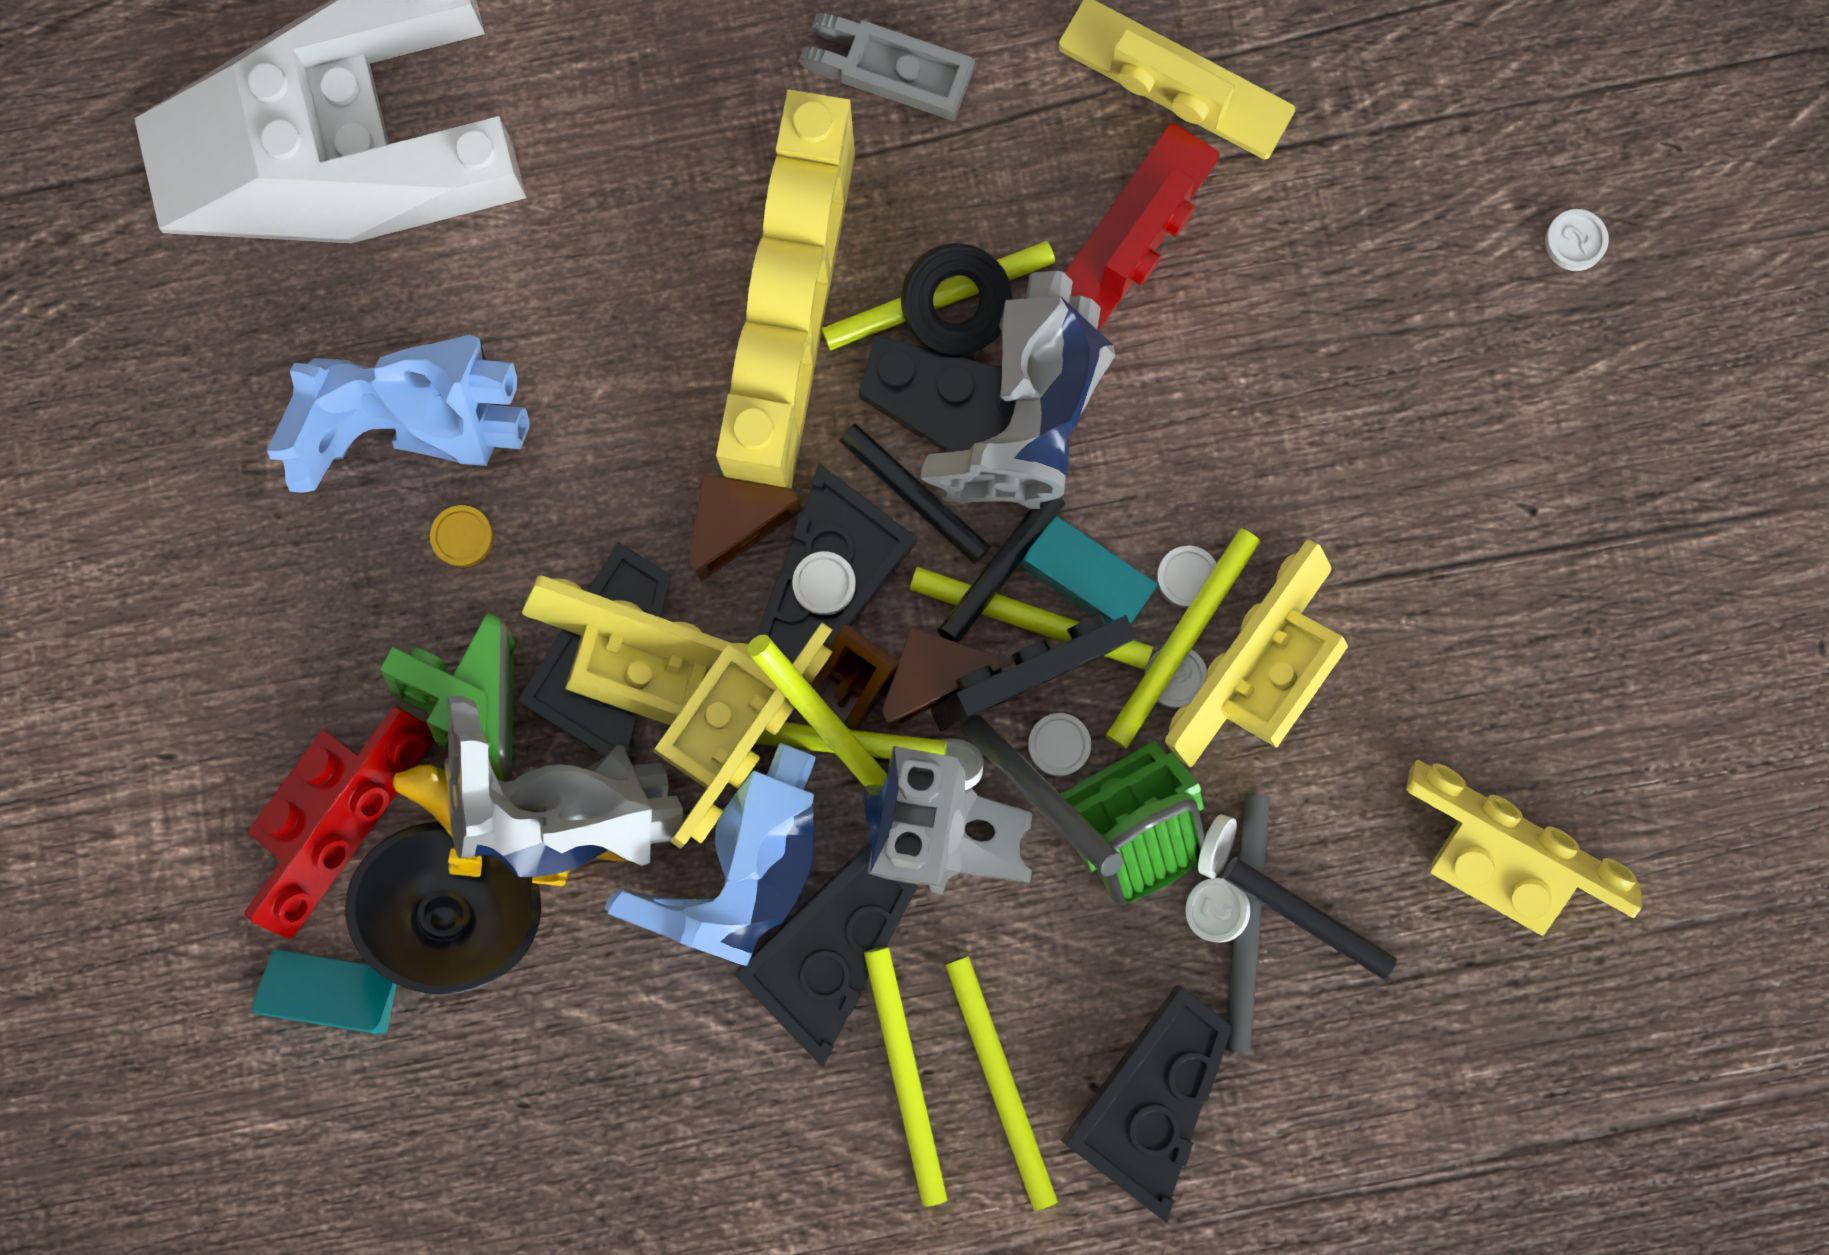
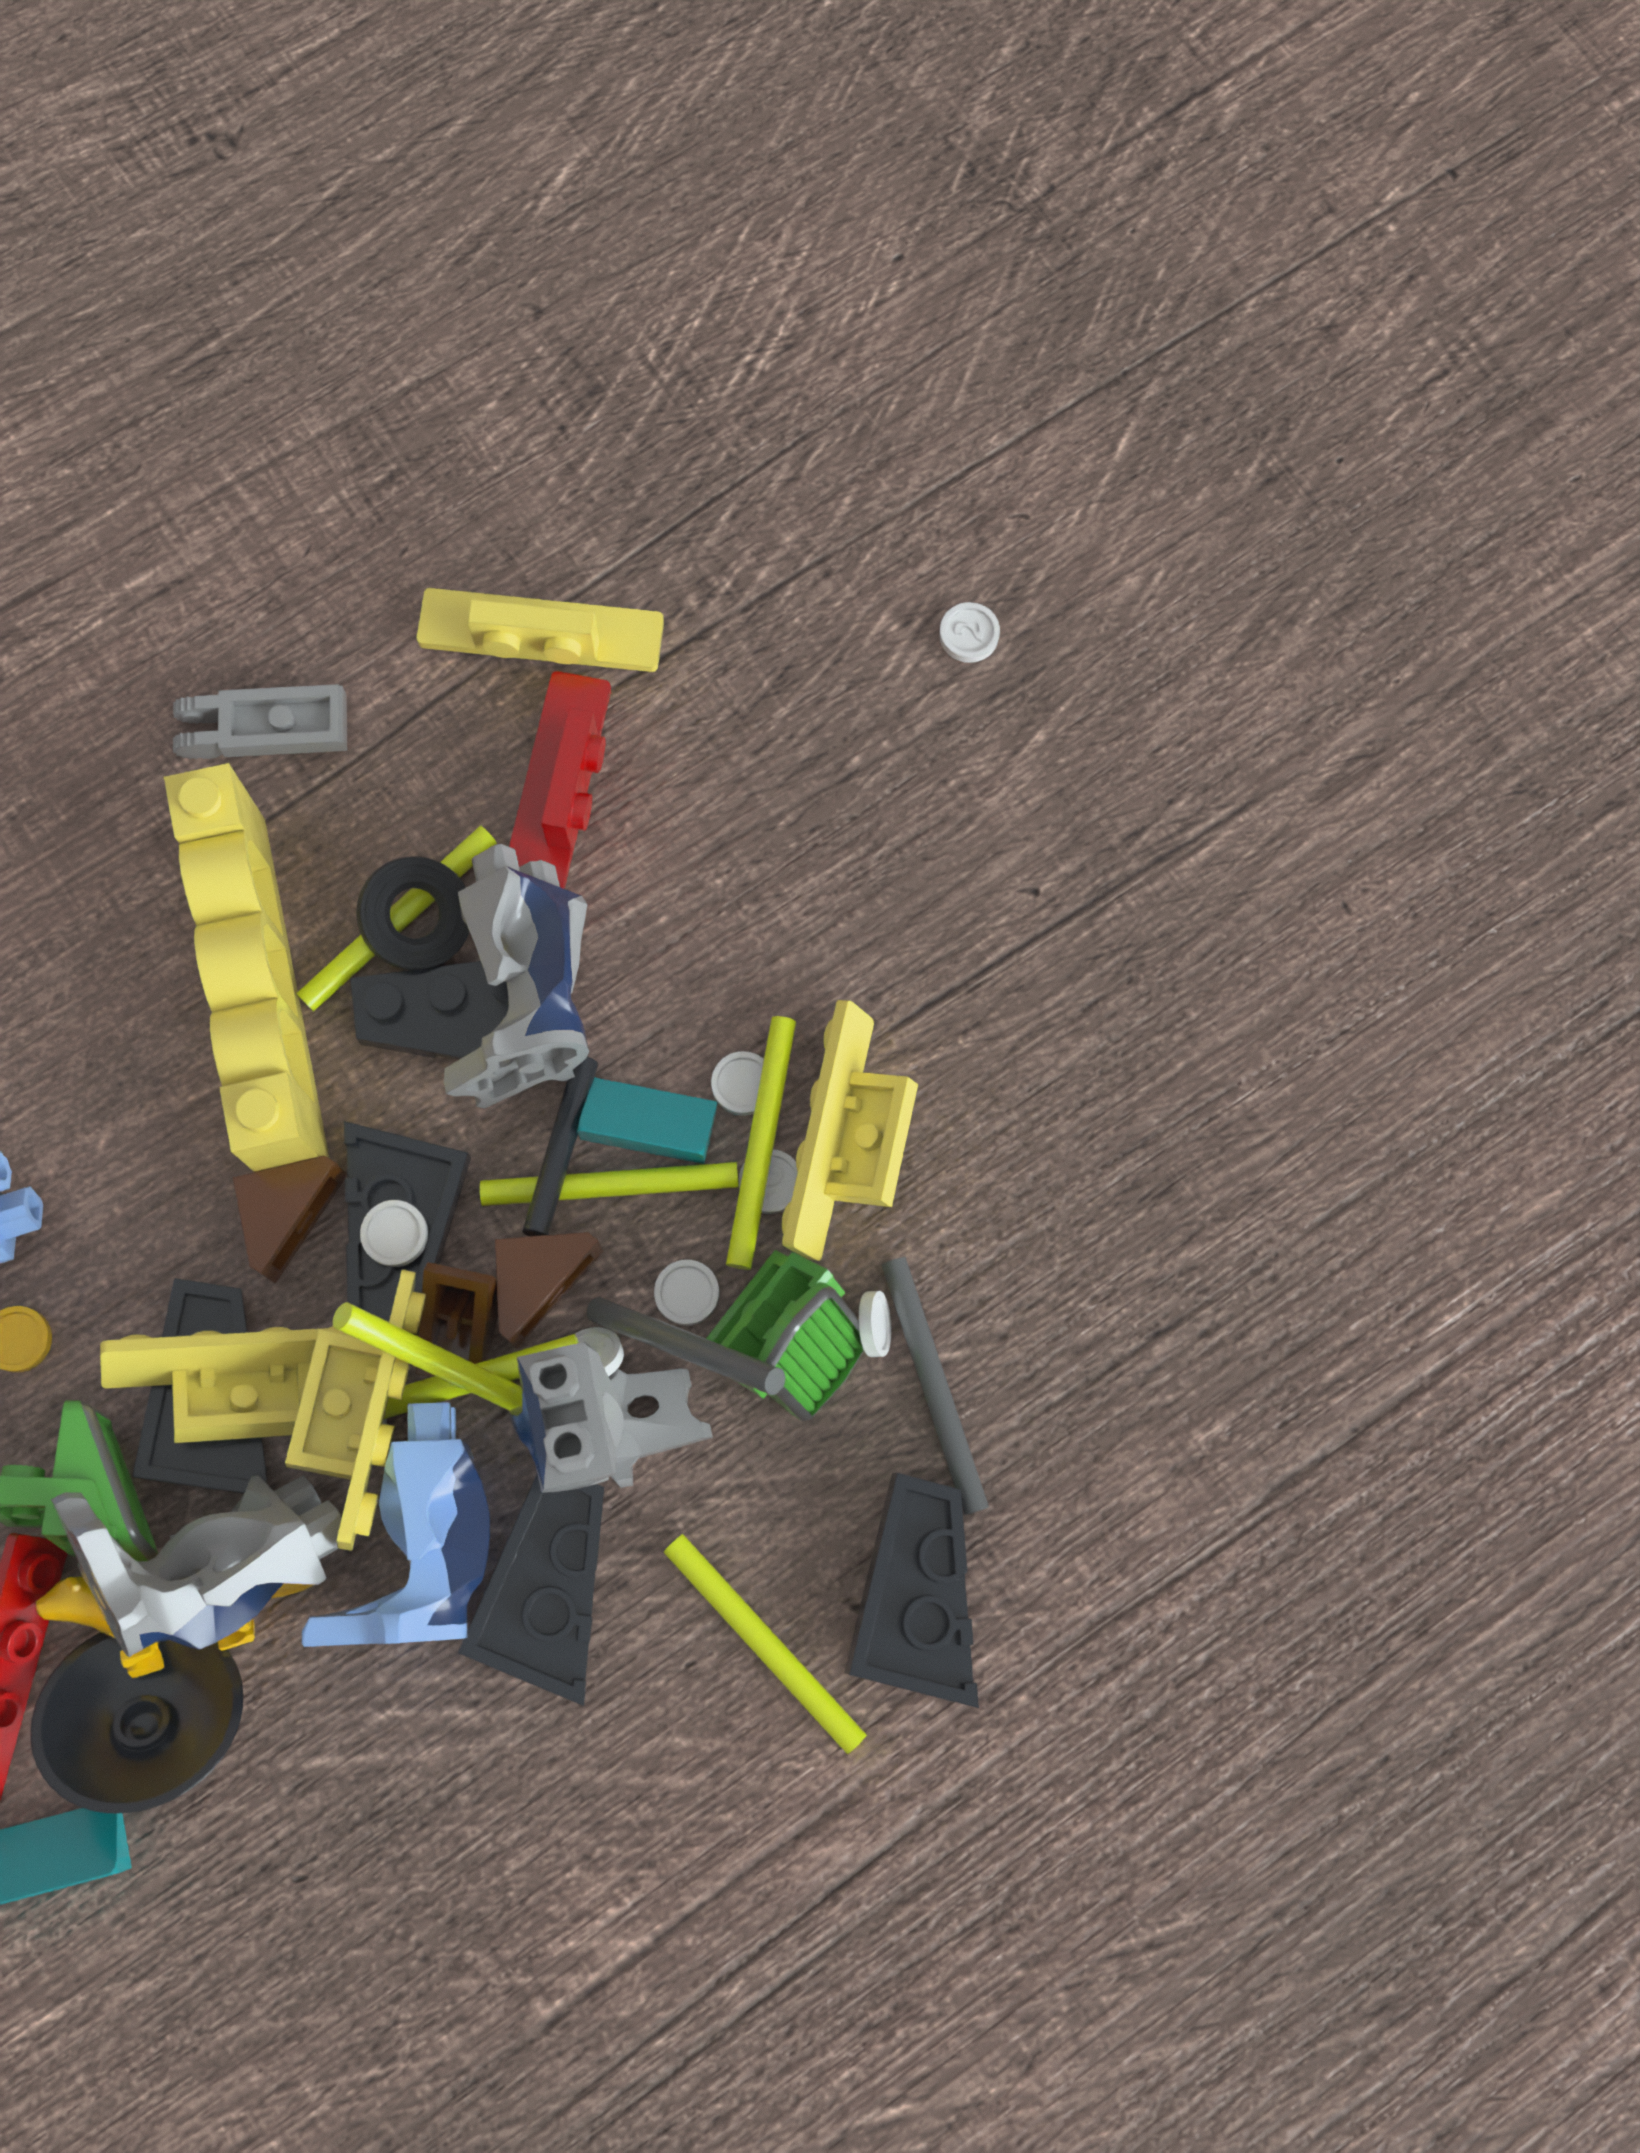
camera: 30 degrees left, 5 degrees down
(905, 1076) = (668, 1678): neon yellow bar -> none
(915, 493) = (450, 1112): black bar -> none
(1033, 666) = (628, 1222): black wing -> none
(1217, 910) = (901, 1384): white piece -> none
(1309, 918) = (989, 1354): black bar -> none
(1513, 861) = (1151, 1219): light yellow bracket -> none

